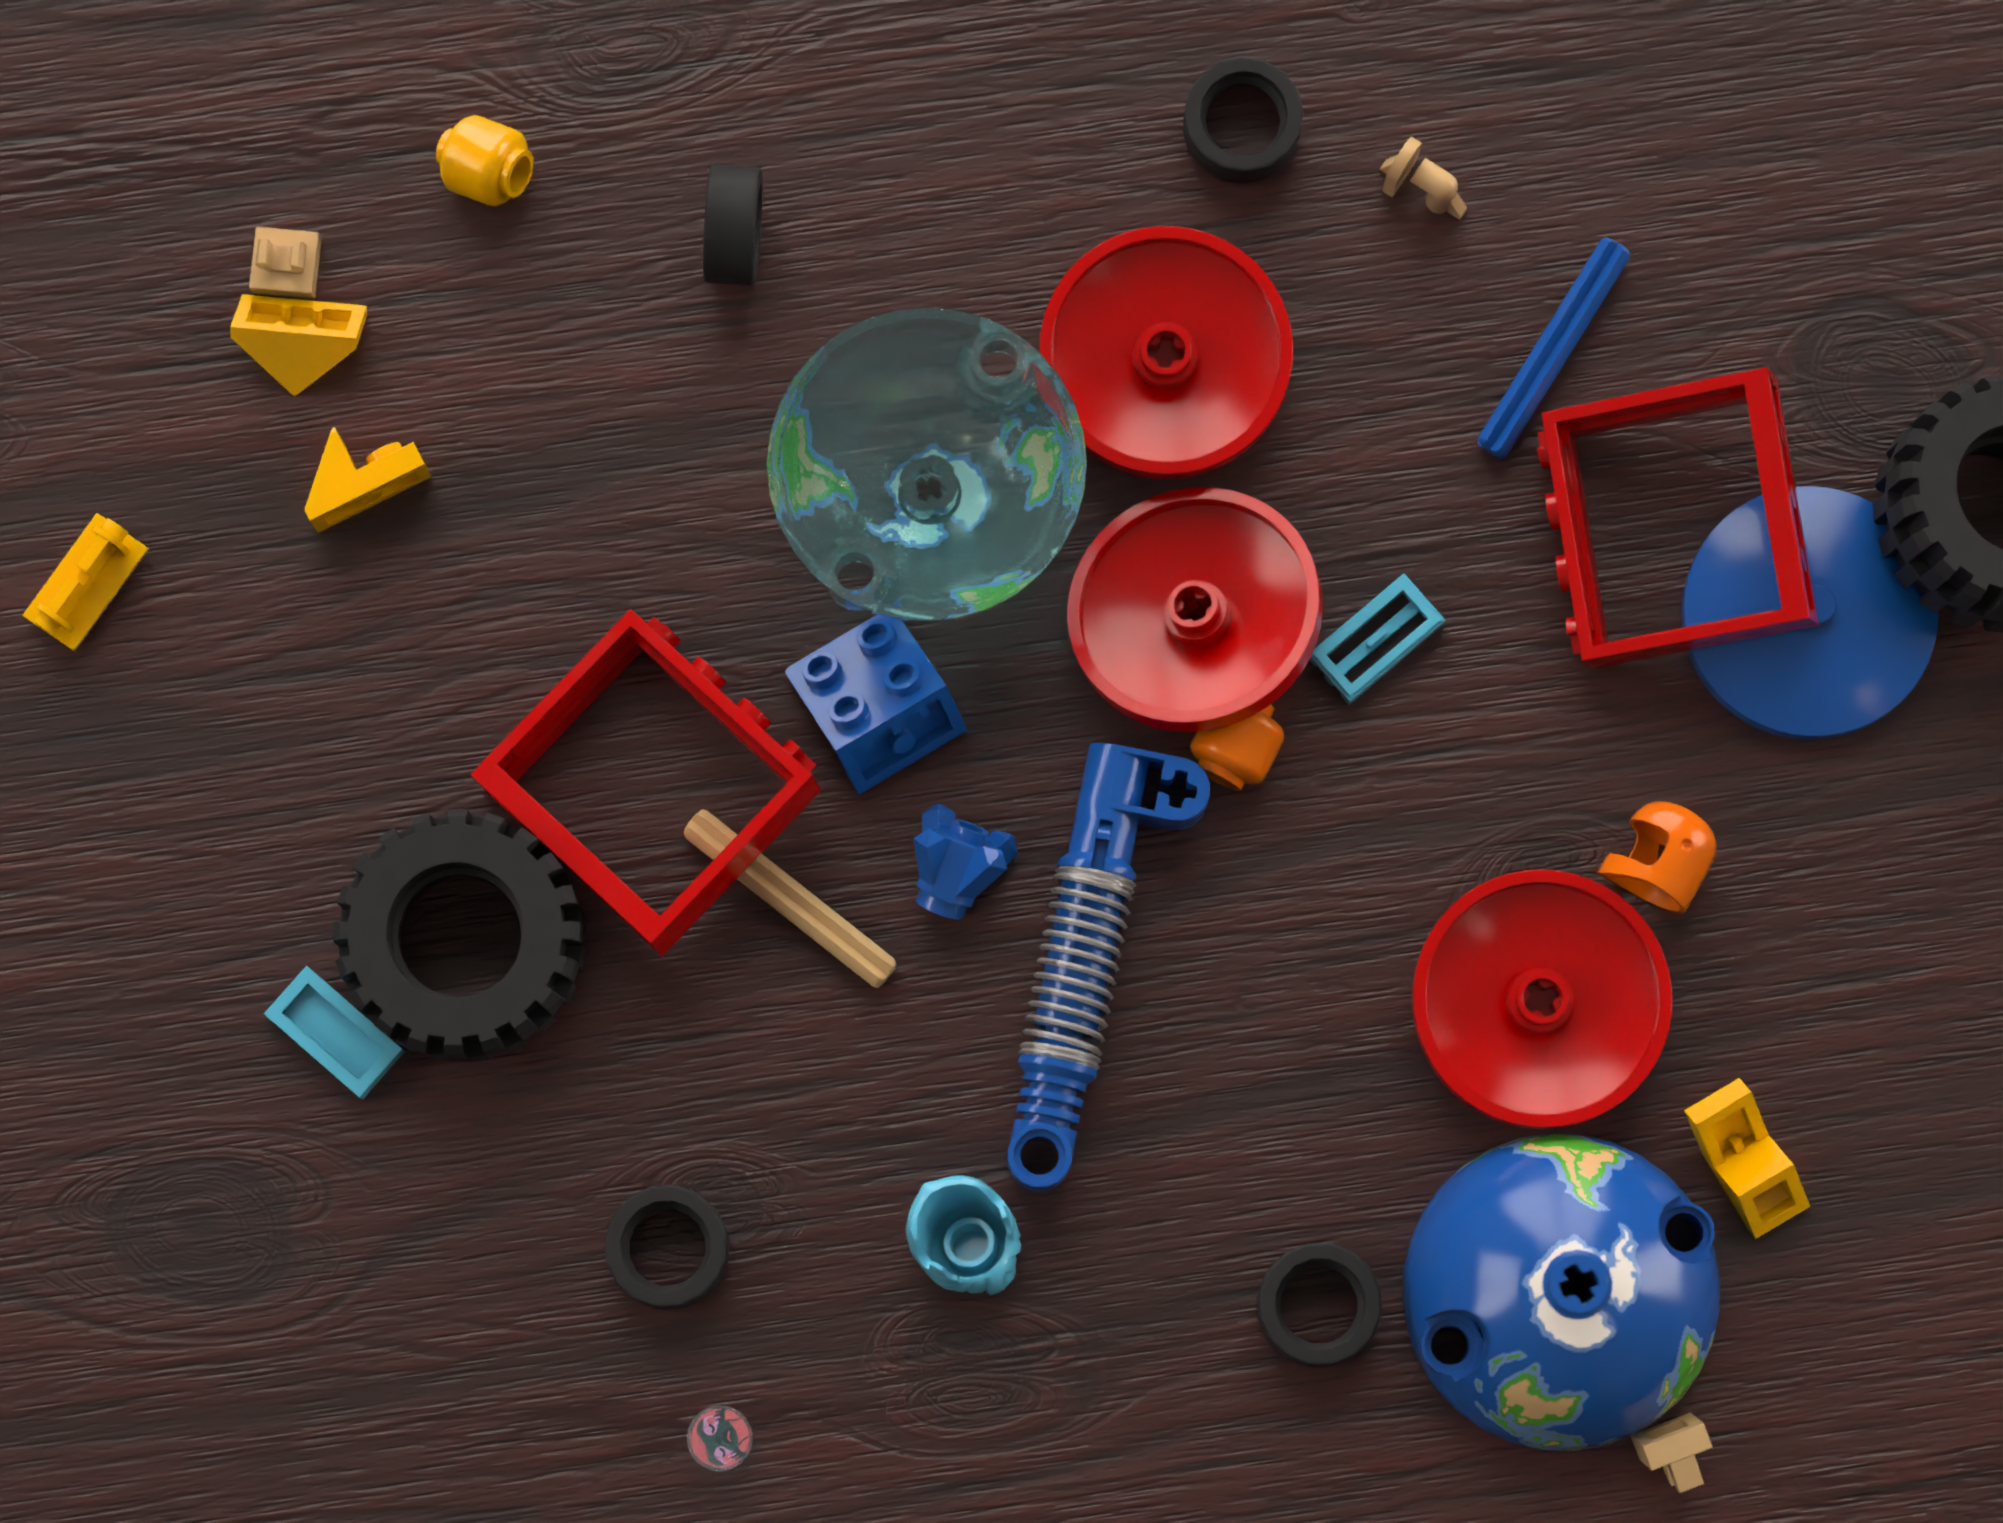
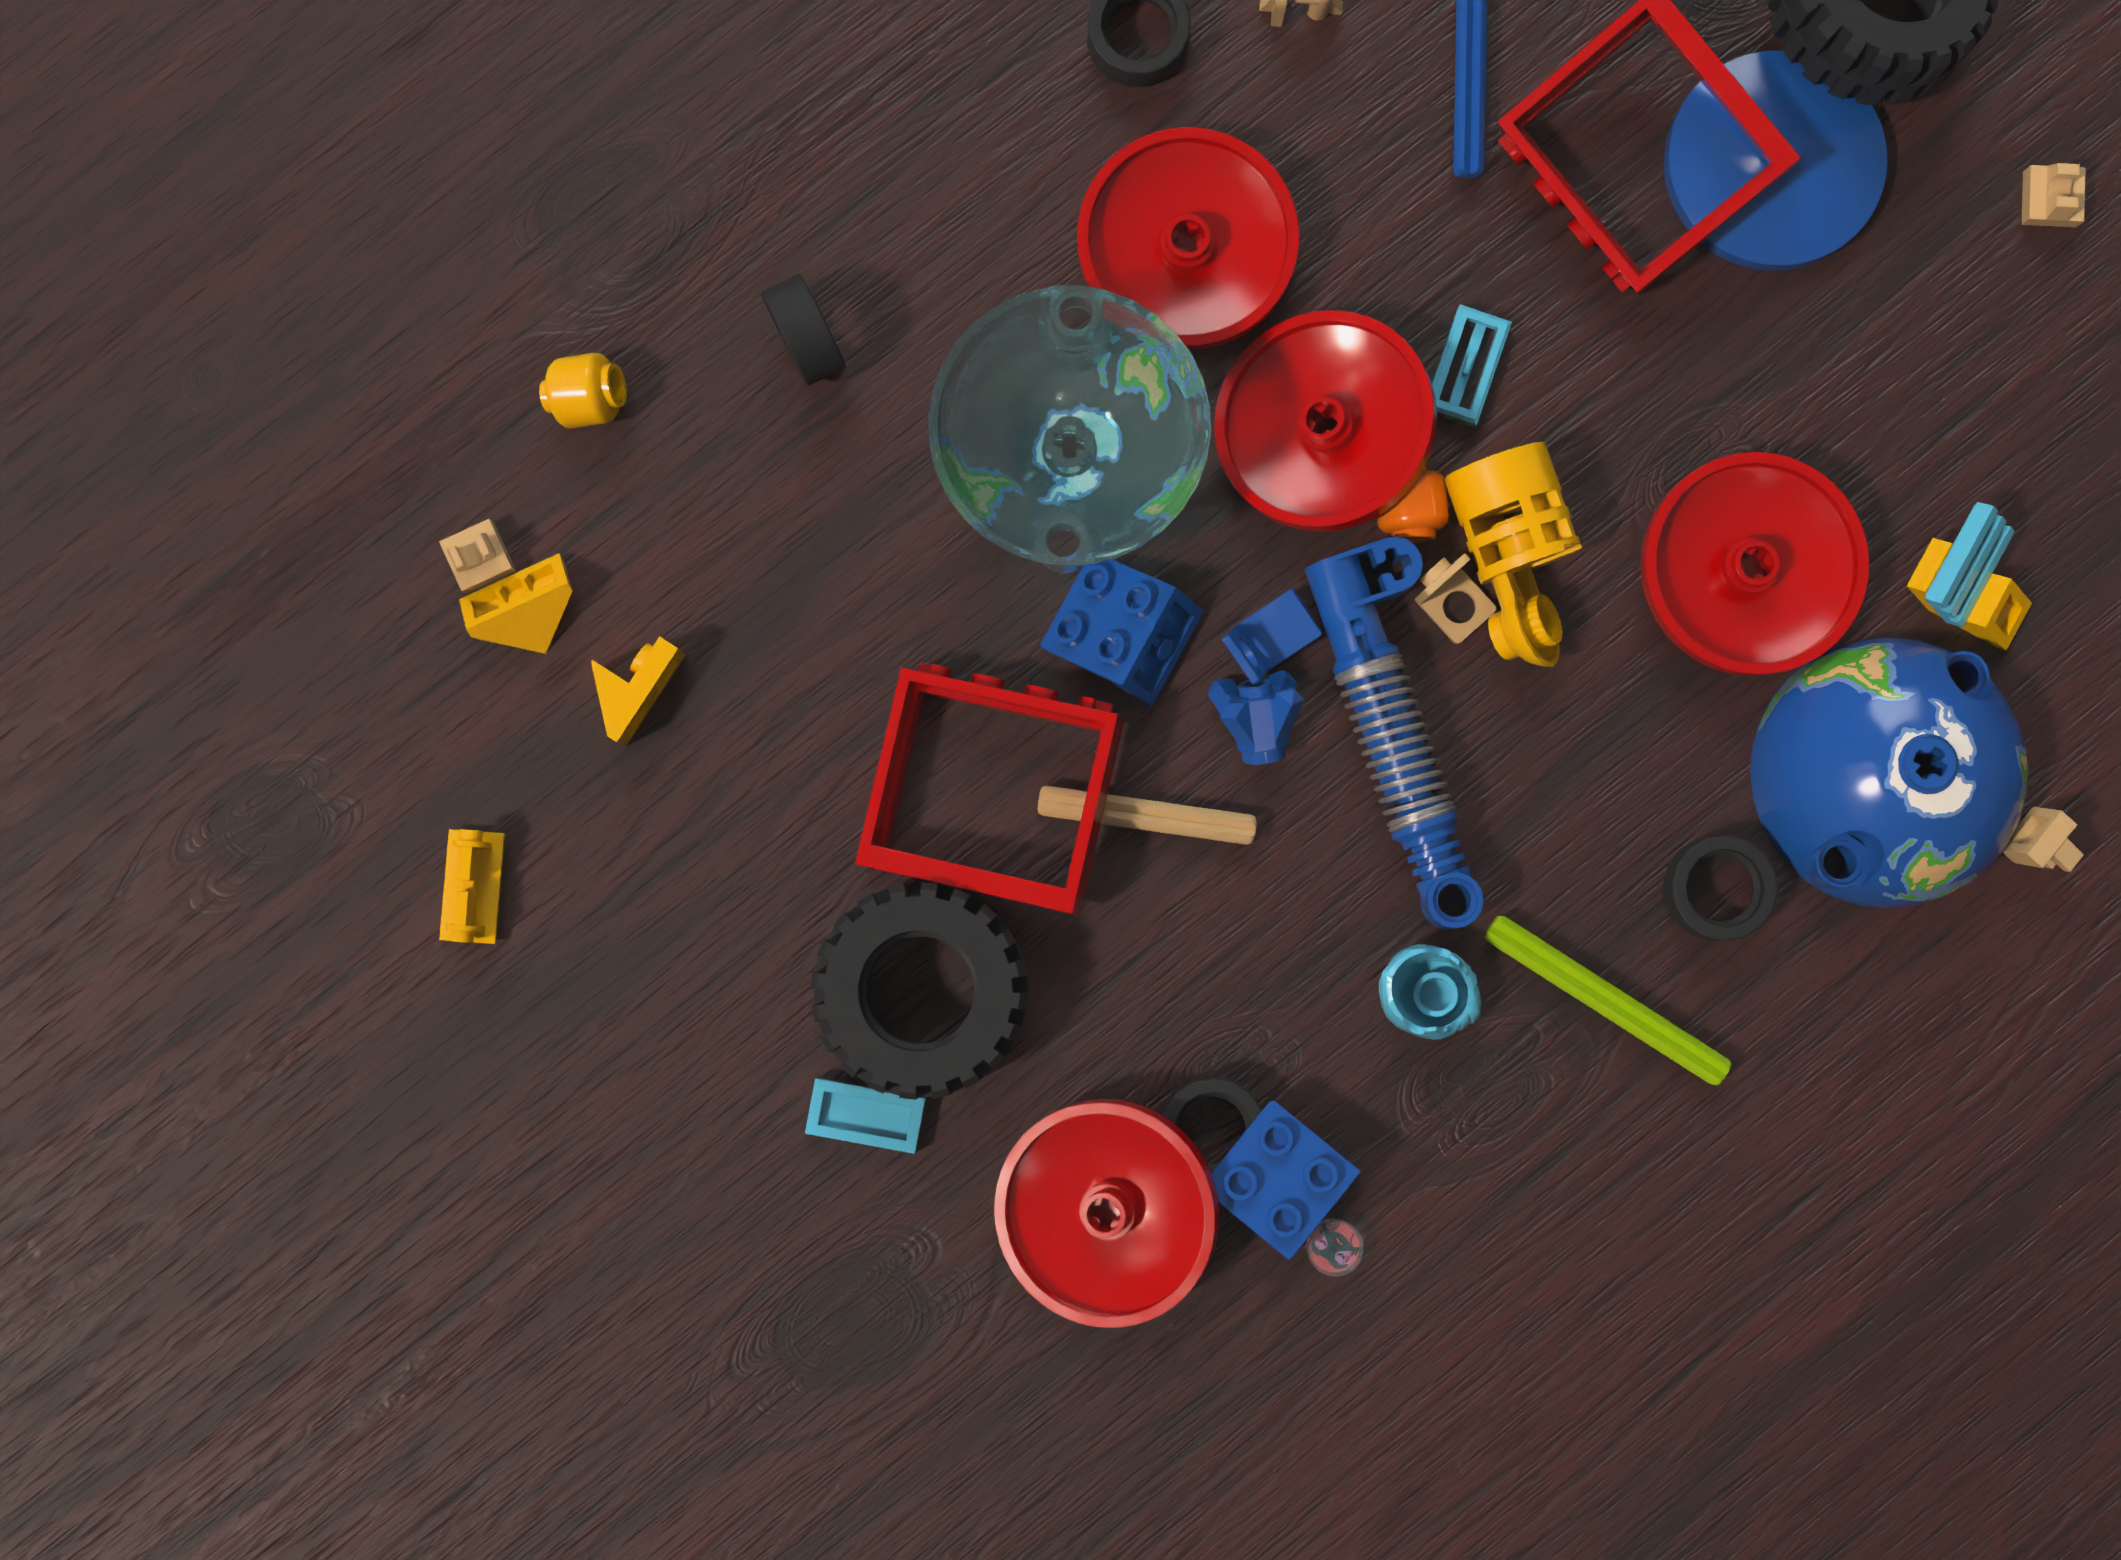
camera: 30 degrees left, 5 degrees up
(511, 1263) = (1106, 1213): none -> red dish
(704, 1334) = (1281, 1179): none -> blue bracket
(1016, 791) = (1271, 635): none -> blue bracket
(1140, 1352) = (1608, 1000): none -> lime axle
(1219, 837) = (1442, 581): none -> tan bracket
(1317, 825) = (1515, 546): none -> yellow cylinder
(1679, 871) = (1796, 407): orange helmet -> none
(1759, 1125) = (1969, 564): none -> medium azure tile

